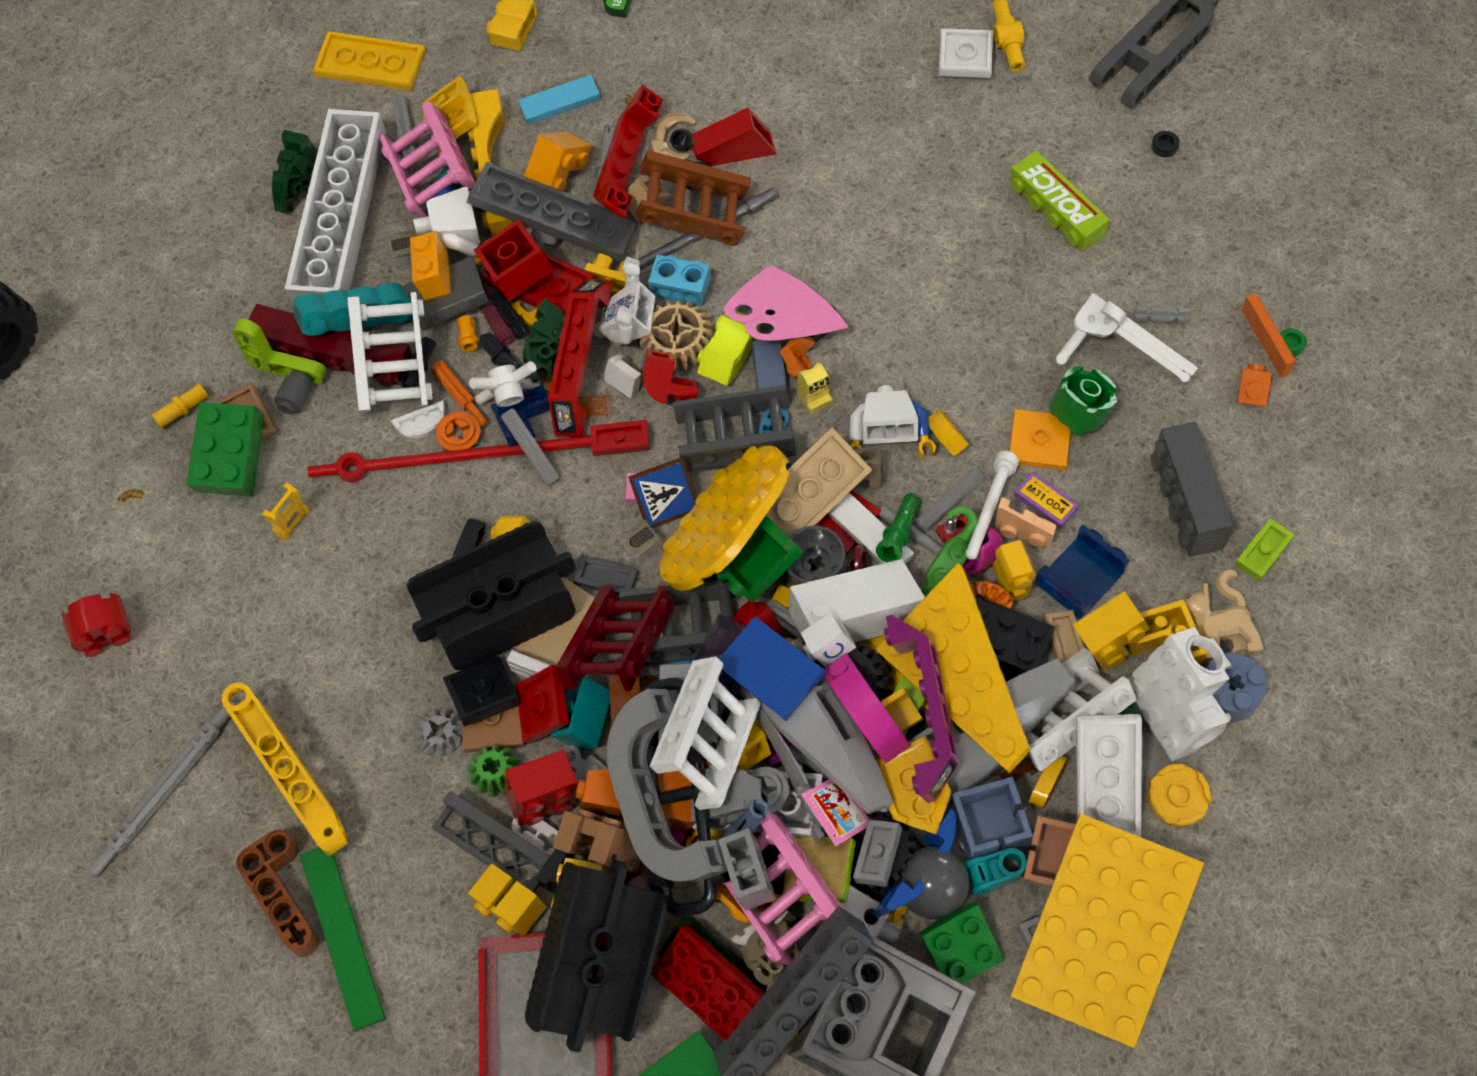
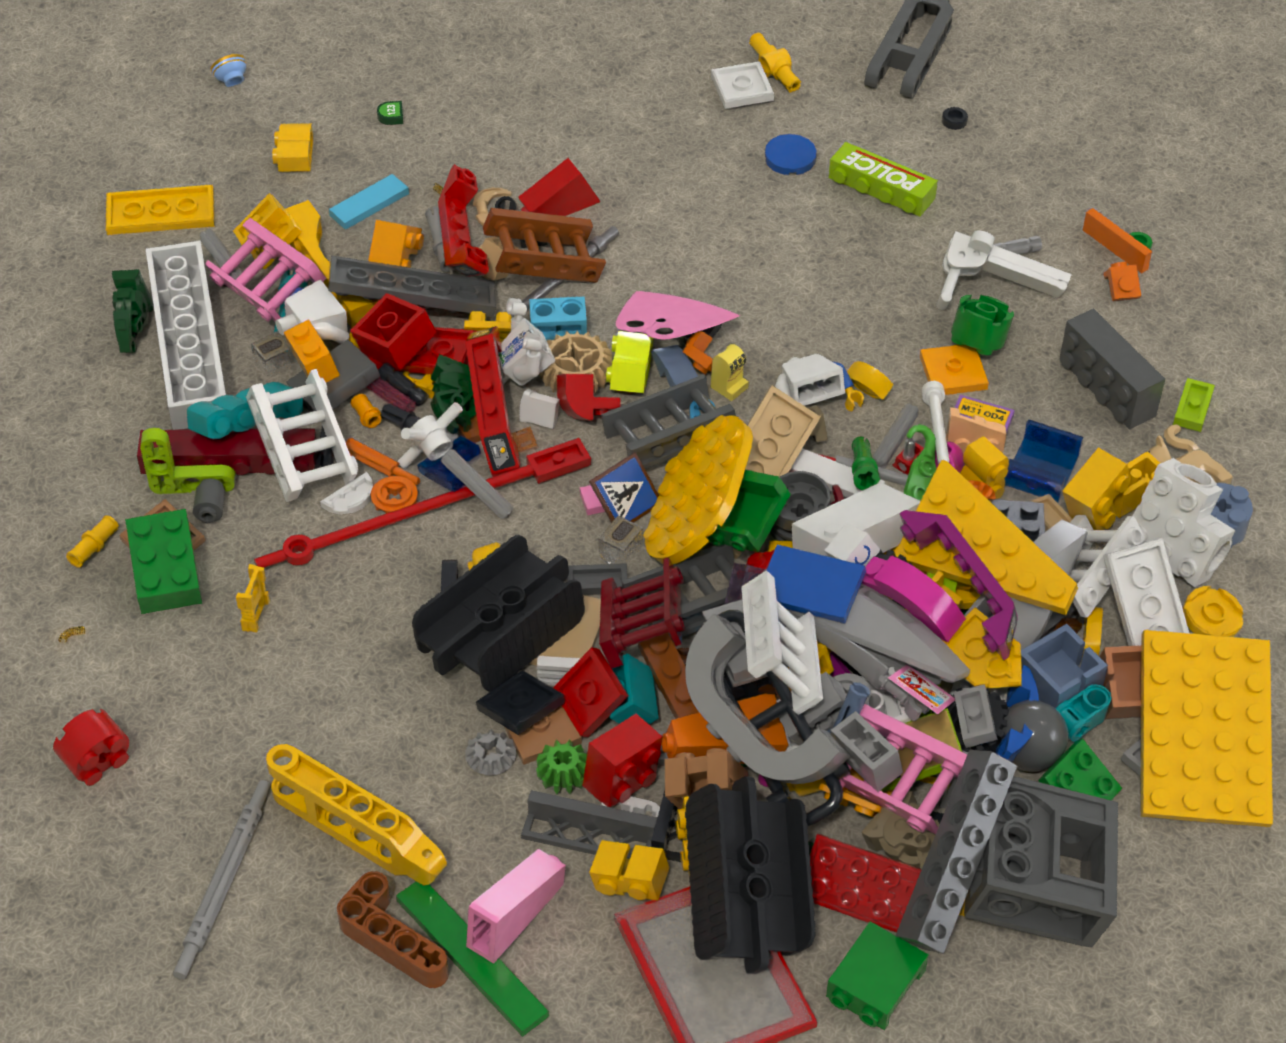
camera: 25 degrees left, 15 degrees down
(391, 901) = (512, 904): none -> bright pink slope
(981, 146) = (790, 154): none -> blue tile

